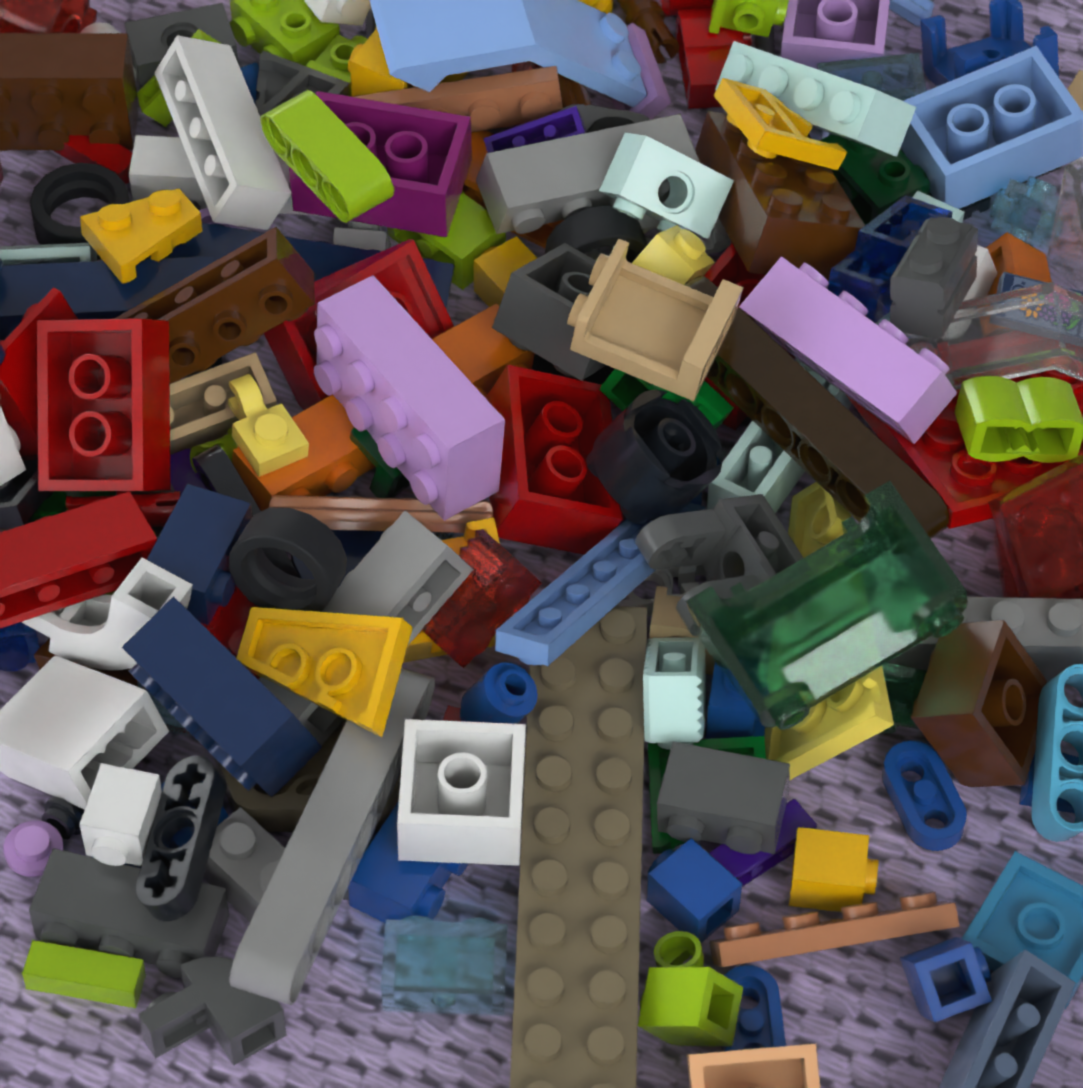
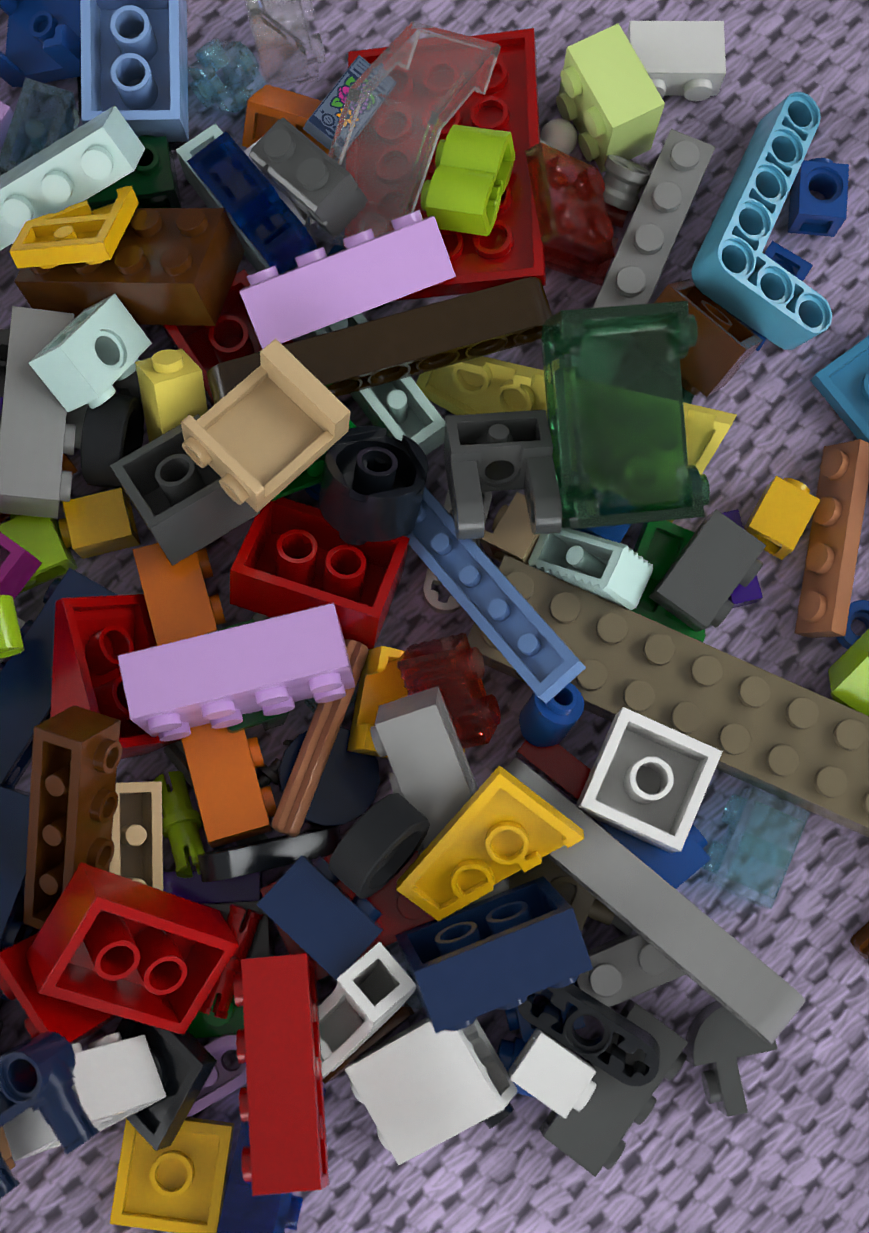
camera: 70 degrees left, 25 degrees up
(30, 847) = (513, 1144): lavender plate -> none
(84, 974) = (650, 1143): lime piece -> none
(264, 435) = (209, 807): light yellow plate -> none
(676, 948) = (820, 658): lime hinge -> none
(693, 890) = (759, 628): blue brick -> none
(924, 799) = (744, 405): blue plate -> none

